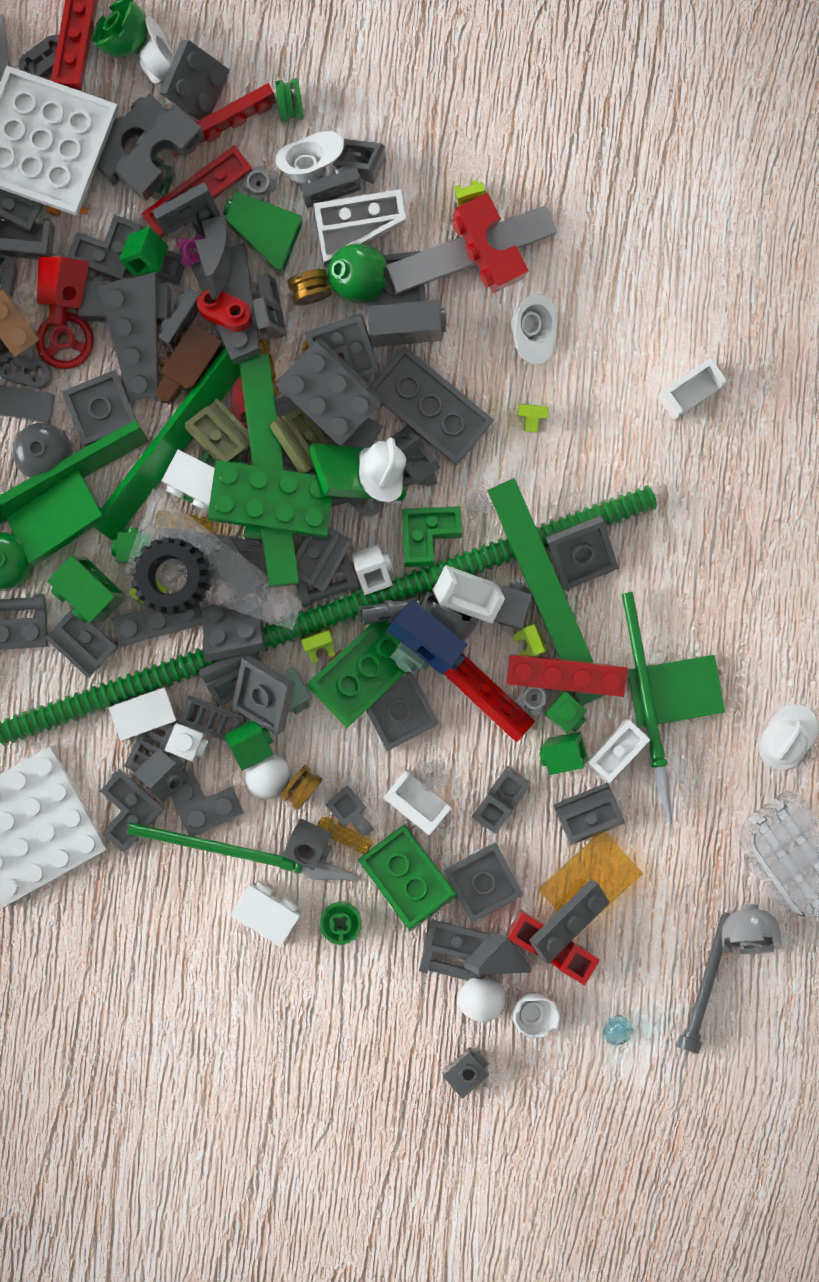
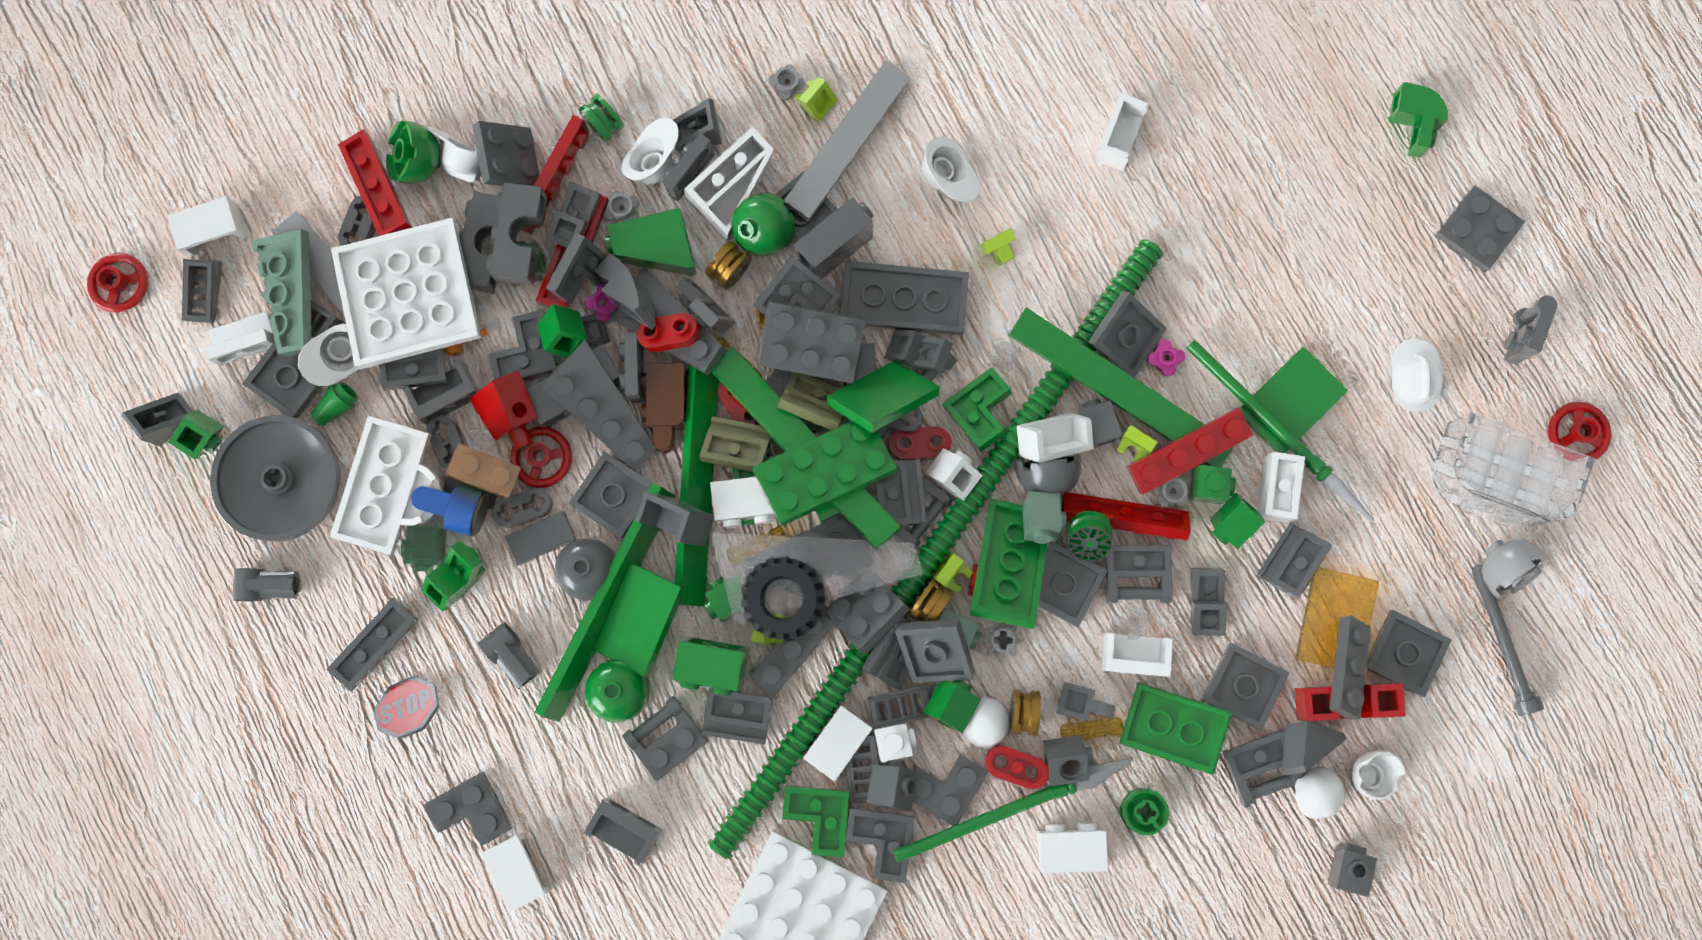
camera: 25 degrees left, 5 degrees down
(101, 759) = (826, 809): none -> green plate
(135, 458) = (676, 517): none -> dark grey panel
(215, 165) = (574, 214): none -> dark grey slope
(267, 824) = (1016, 766): none -> red plate
(288, 659) = (934, 604): none -> pearl gold wheel
(313, 723) = (995, 646): none -> light grey gear
(364, 528) = (920, 443): none -> red plate
(382, 470) = (904, 378): white piece -> none
(382, 612) = (995, 500): dark grey pin -> none
(428, 638) = (1050, 498): dark blue brick -> none
(444, 689) = (1089, 534): none -> green wheel
(463, 163) = (787, 73): none -> light grey plate
(467, 733) = (1139, 562): none -> dark grey plate
(497, 267) = (880, 138): red arch -> none
(605, 583) = (1157, 359): none -> dark pink plate
(617, 1030) = (1458, 738): clear light blue plate -> none
(624, 941) = (1407, 653): none -> dark grey plate

